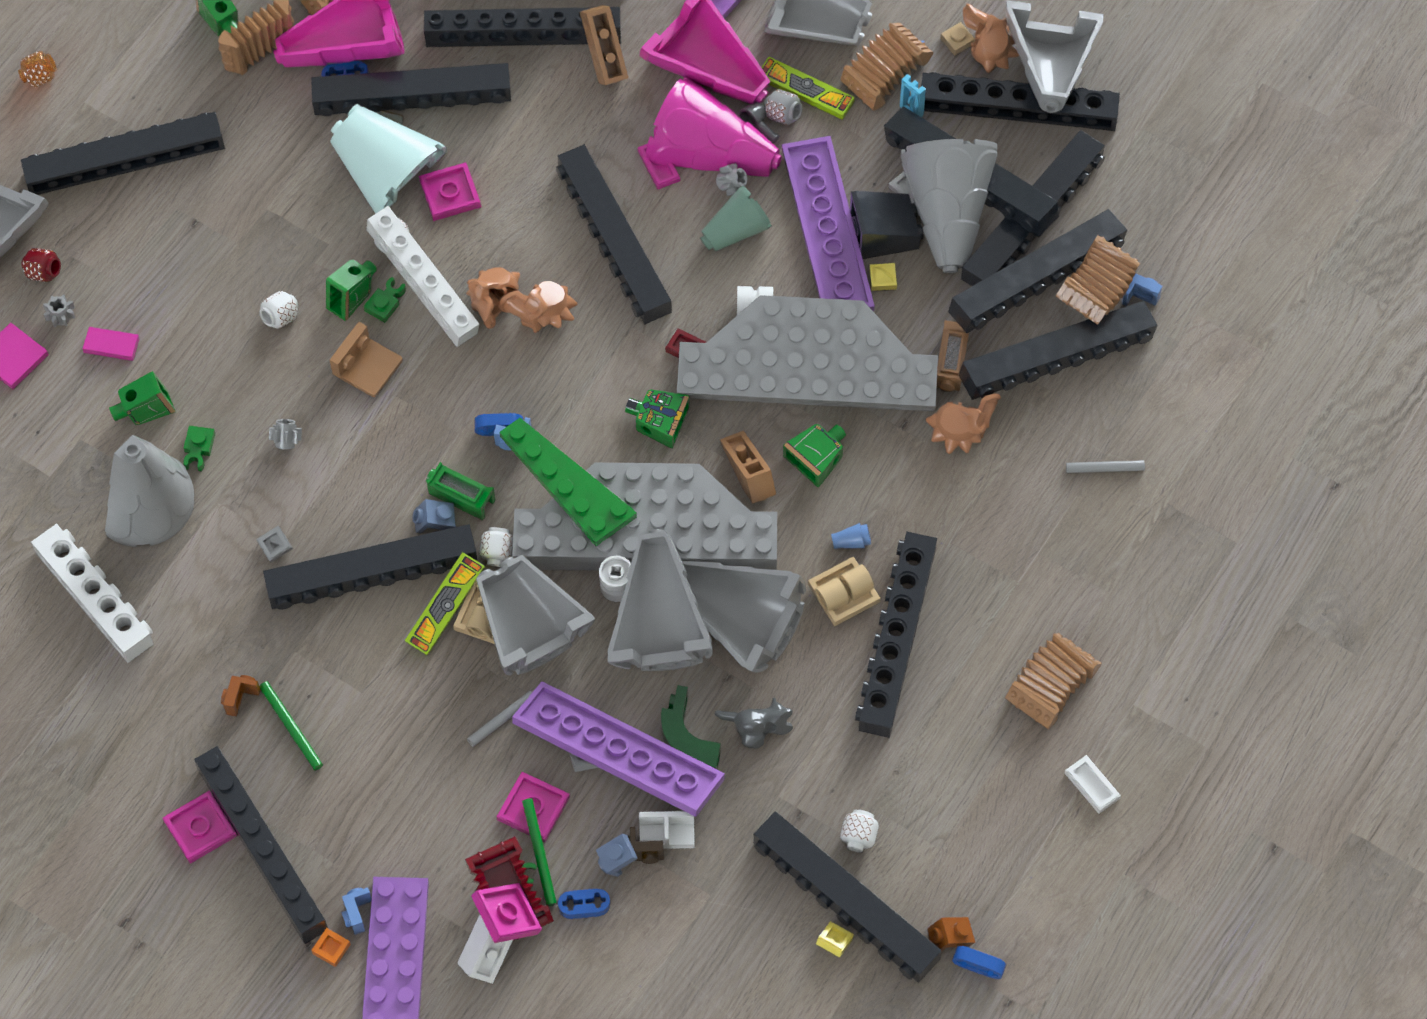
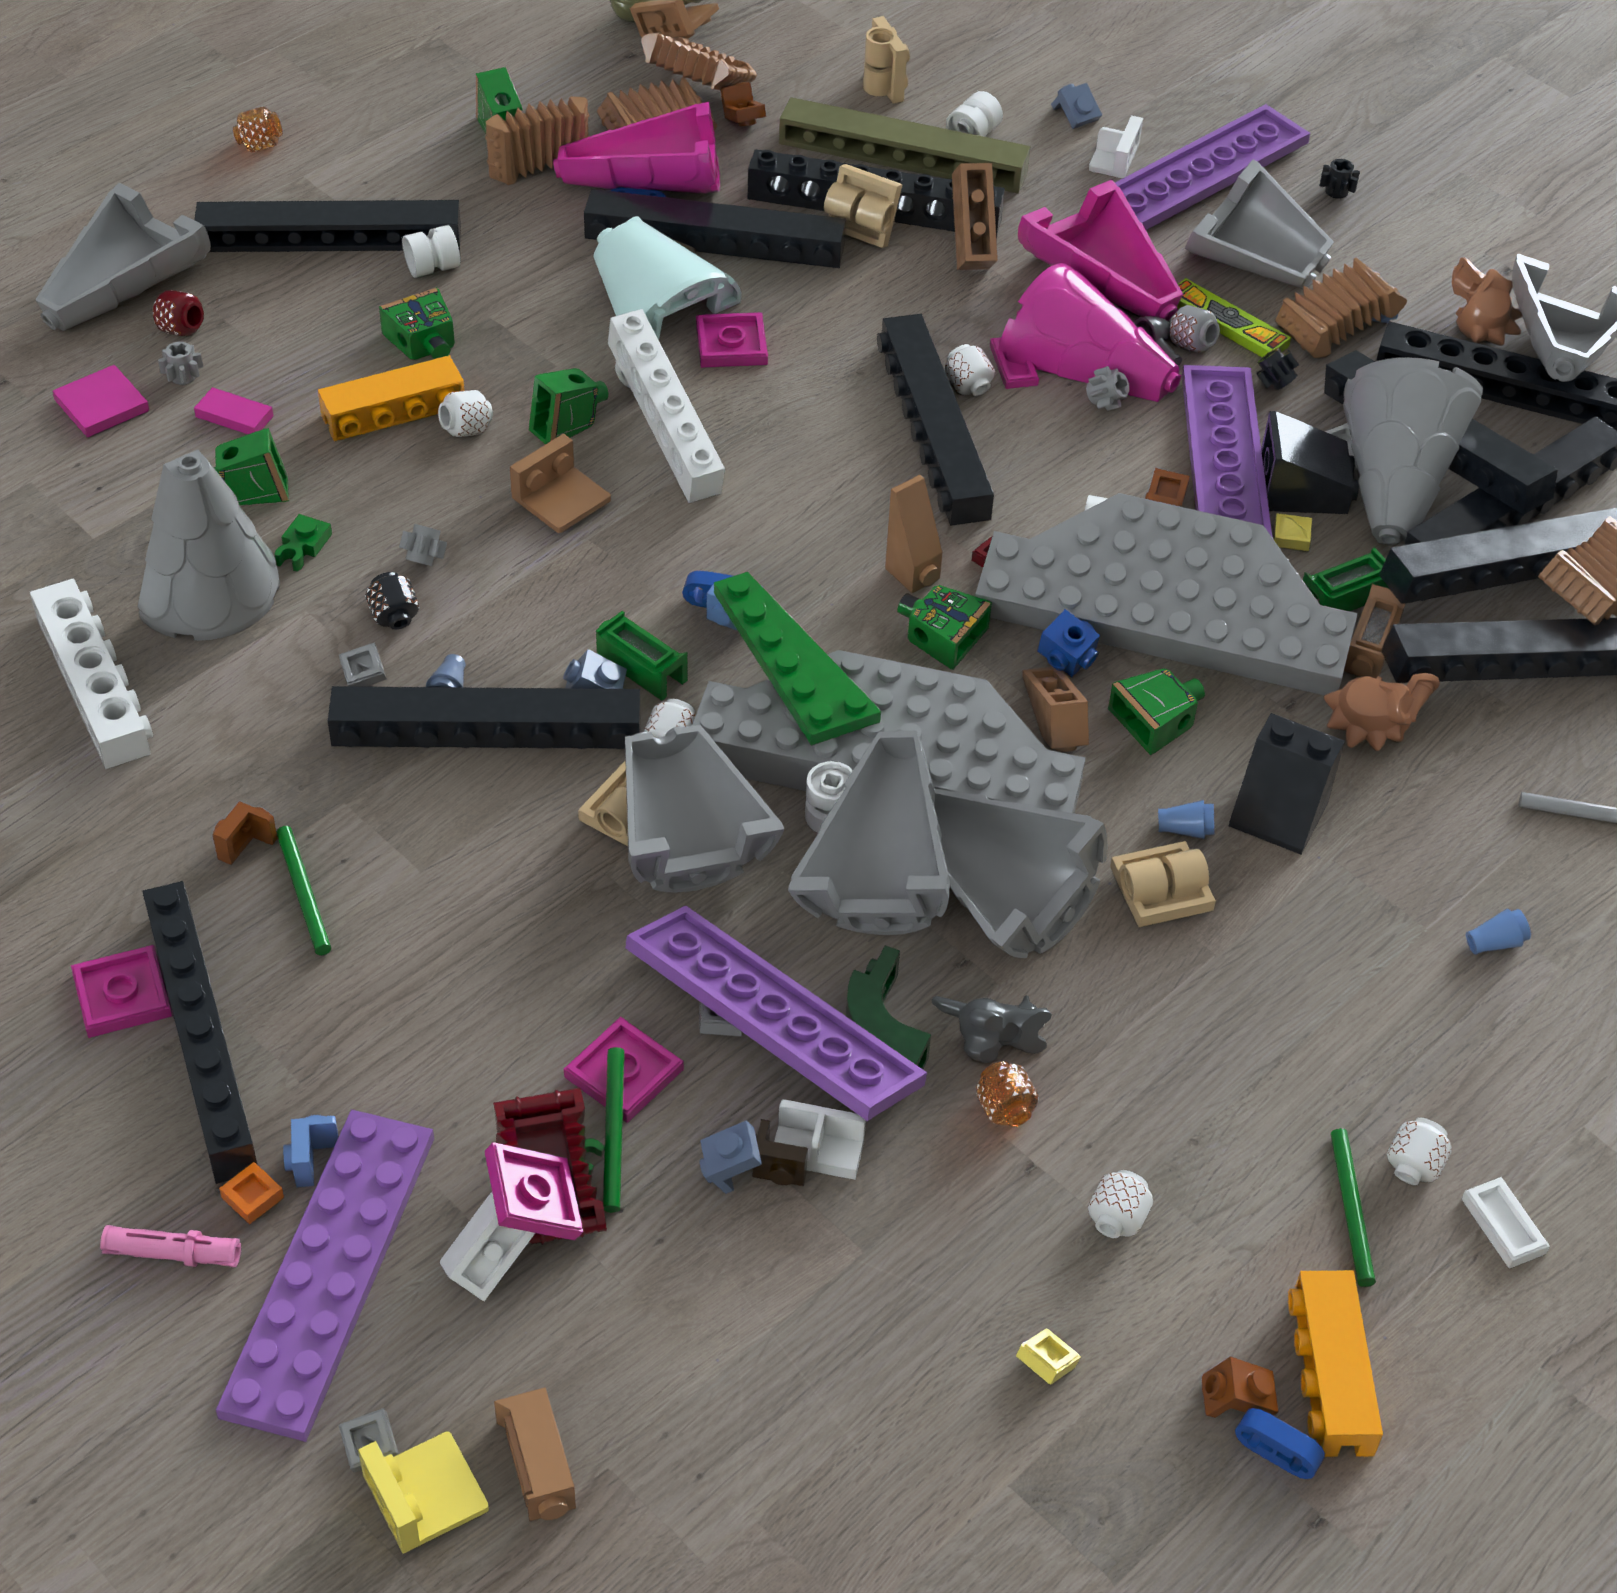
camera: 10 degrees right, 15 degrees down
(206, 164) = (431, 251): none -> white wheel
(221, 235) = (419, 325): none -> green torso
(221, 307) = (388, 397): none -> light orange brick
(278, 486) = (392, 600): none -> black head
(294, 993) = (188, 1248): none -> bright pink pin
(335, 539) = (449, 673): none -> sand blue cone
(384, 303) = (609, 436): green plate -> none
(444, 604) = (570, 782): tile -> none
(488, 291) = (754, 445): nougat head -> none
(497, 721) = (594, 950): light grey bar -> none
(518, 46) = (865, 202): none -> tan plate
(543, 306) = (812, 470): nougat head -> none
(582, 897) = (662, 1218): blue beam -> none
(624, 356) = (912, 536): none -> medium nougat slope
(629, 184) = (969, 370): none -> white head
(735, 221) = (1103, 429): sand green cone -> none
(748, 407) = (1069, 644): none -> blue brick
(775, 771) = (1007, 1094): none -> clear orange head
(790, 266) = (1168, 487): none -> dark orange bracket
(846, 897) = (1084, 1301): black brick -> none
(849, 132) = (1277, 368): none -> black gear
(880, 720) = (1230, 957): black brick -> none
(911, 499) = (1287, 783): none -> black slope
(917, 96) = (1376, 344): medium azure tile -> none
(926, 318) = (1349, 583): none -> green window
(957, 38) = (1438, 306): tan plate -> none
(999, 795) = (1352, 1208): none -> green bar
(1003, 902) = (1335, 1362): none -> light orange brick
(1034, 750) = (1419, 1151): none -> white head
(1050, 679) = (1459, 1060): medium nougat piece -> none
(1065, 577) = (1502, 931): none -> medium blue cone

